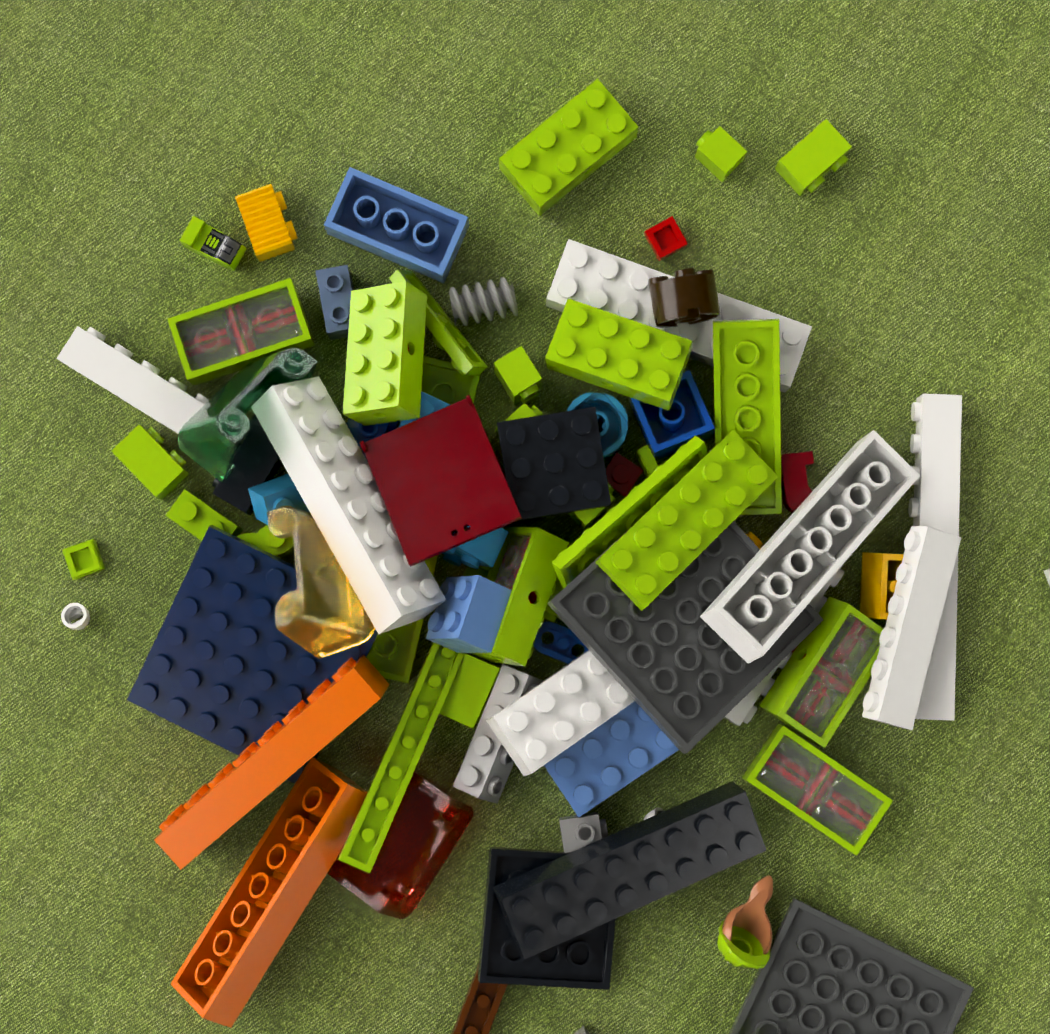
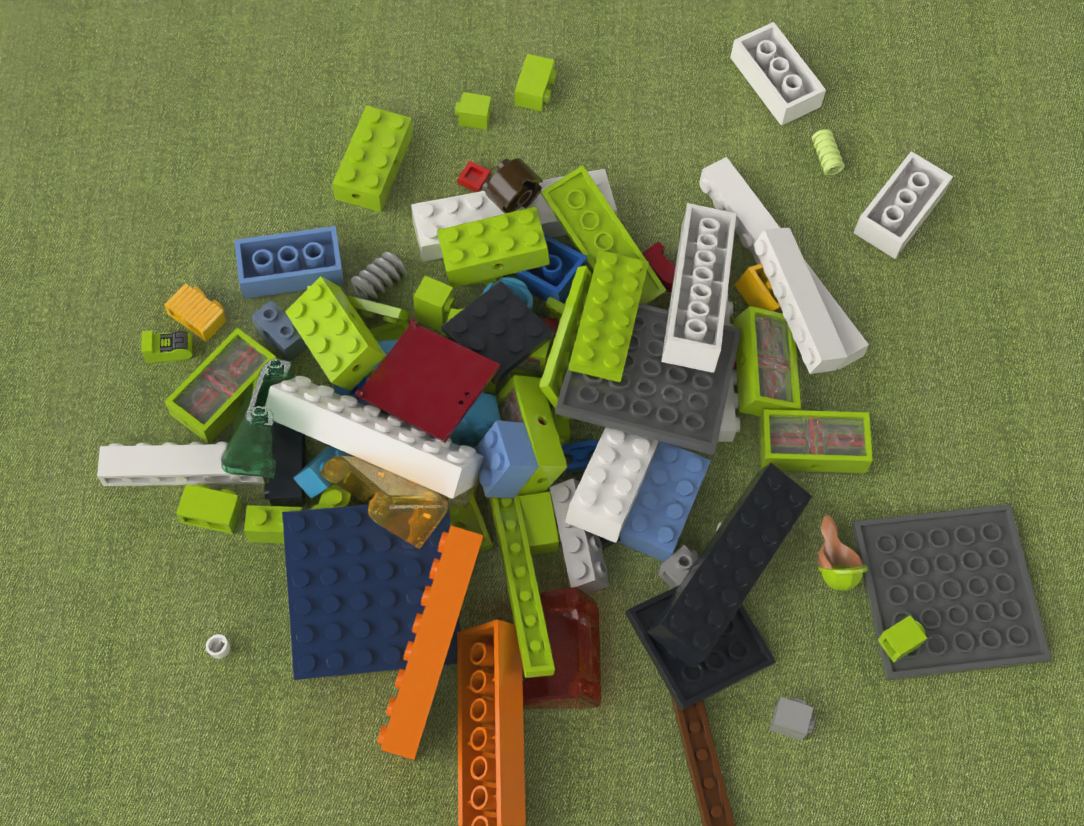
camera: 35 degrees left, 20 degrees down
(83, 559) = (199, 606): lime tile -> none

